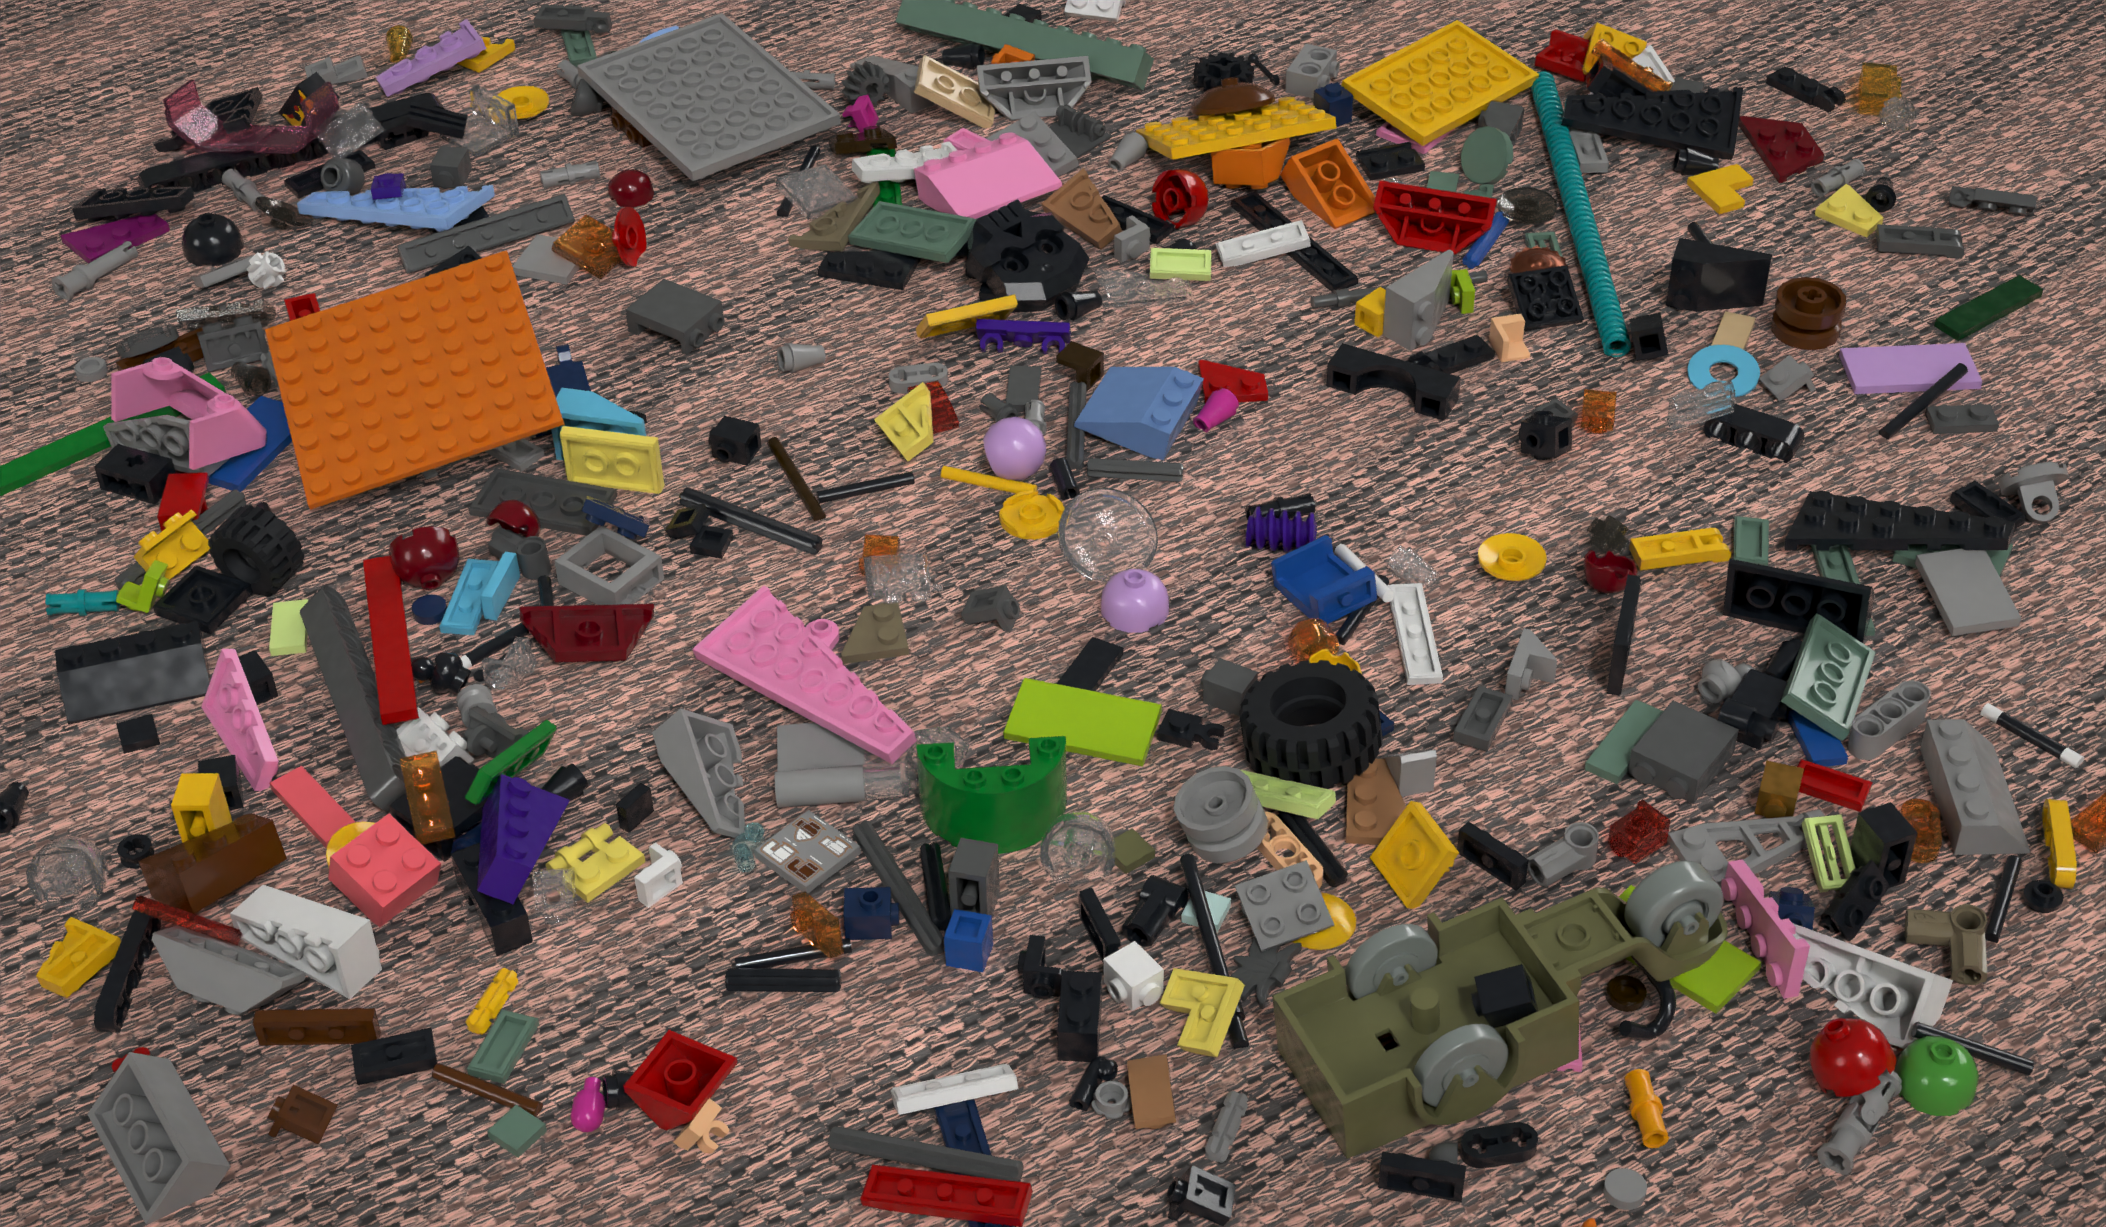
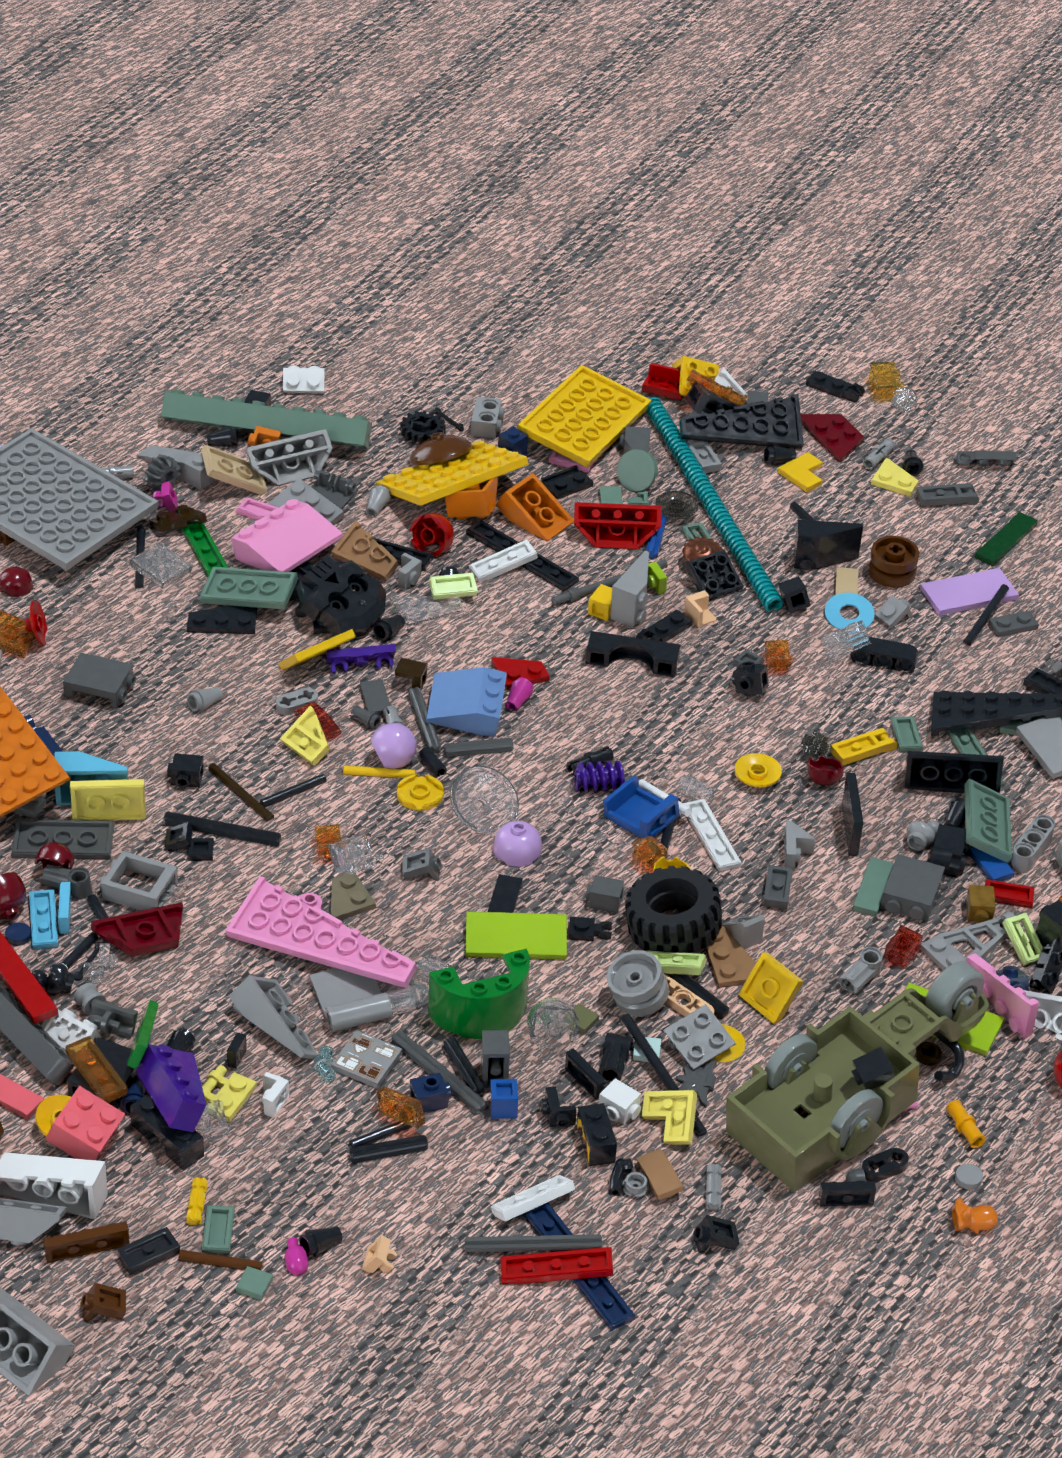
camera: 20 degrees left, 0 degrees up
(602, 512) = (143, 846): dark blue wing -> none
(678, 1079) = (355, 1227): red slope -> none
(833, 228) = (186, 588): dark tan wing -> none
(897, 168) = (217, 534): white wing -> none
(1492, 856) = (819, 979): black plate -> none

